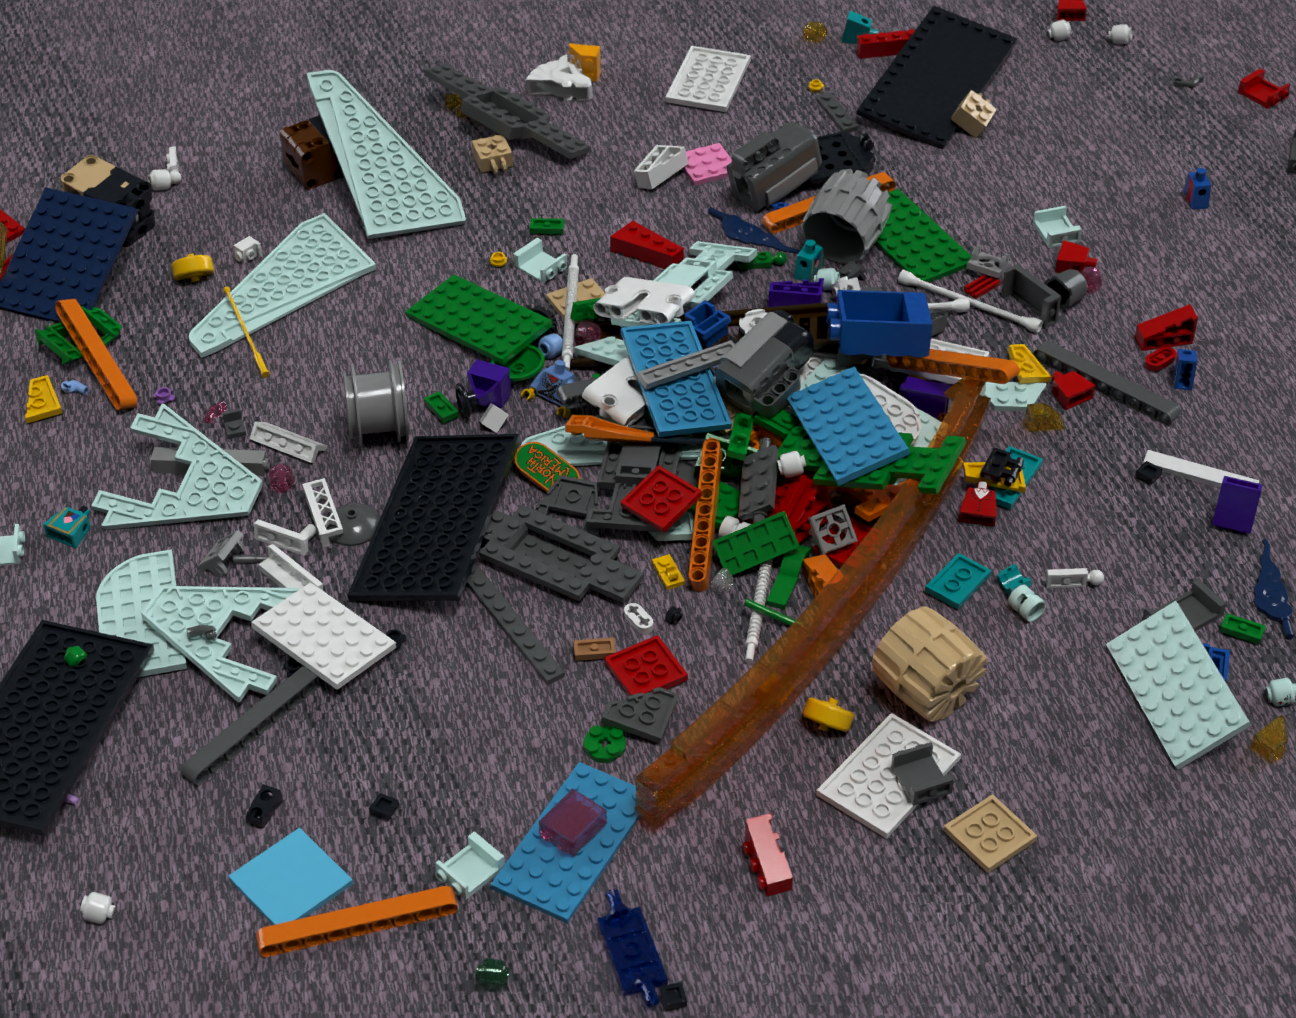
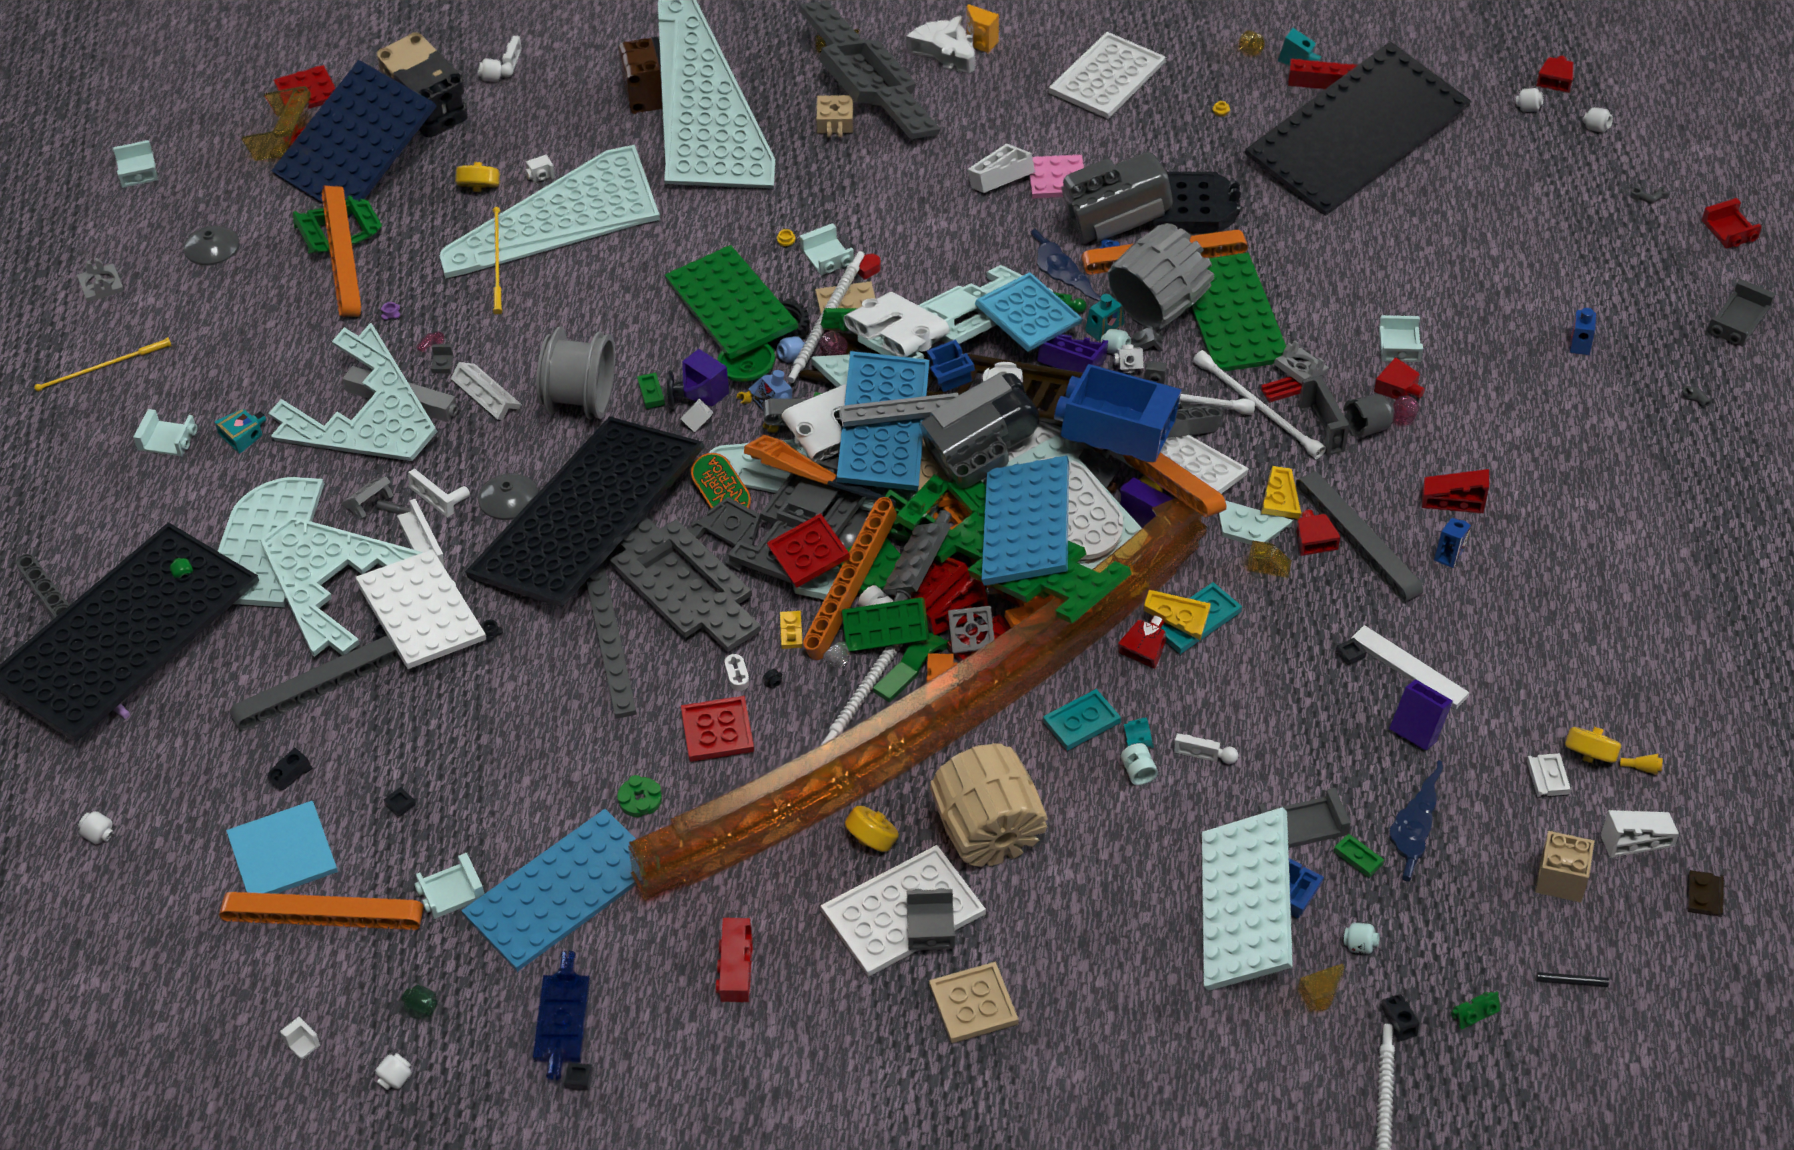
camera: 20 degrees right, 5 degrees up
(42, 400) = (275, 288): yellow wing -> none
(74, 386) = (311, 280): light blue arm -> none
(199, 630) = (306, 572): dark grey arm -> none
(281, 477) = (459, 428): clear pink piece -> none
(322, 522) = (477, 472): white fence -> none
(547, 226) = (853, 211): green plate -> none
(572, 822) = (562, 871): clear pink brick -> none
(585, 265) = (869, 266): none -> red piece
(593, 648) = (676, 693): medium nougat plate -> none
(642, 713) = (689, 775): dark grey plate -> none
(645, 245) = (942, 257): red wedge -> none
(748, 268) = (1028, 311): none -> medium azure tile
(769, 612) = (862, 697): green bar -> none
(791, 464) = (954, 547): white head -> none
(836, 113) = (1228, 146): dark grey plate -> none
(973, 113) = (1374, 181): tan hinge -> none
(996, 467) = (1179, 601): black plate -> none
(1160, 358) = (1432, 522): red plate -> none

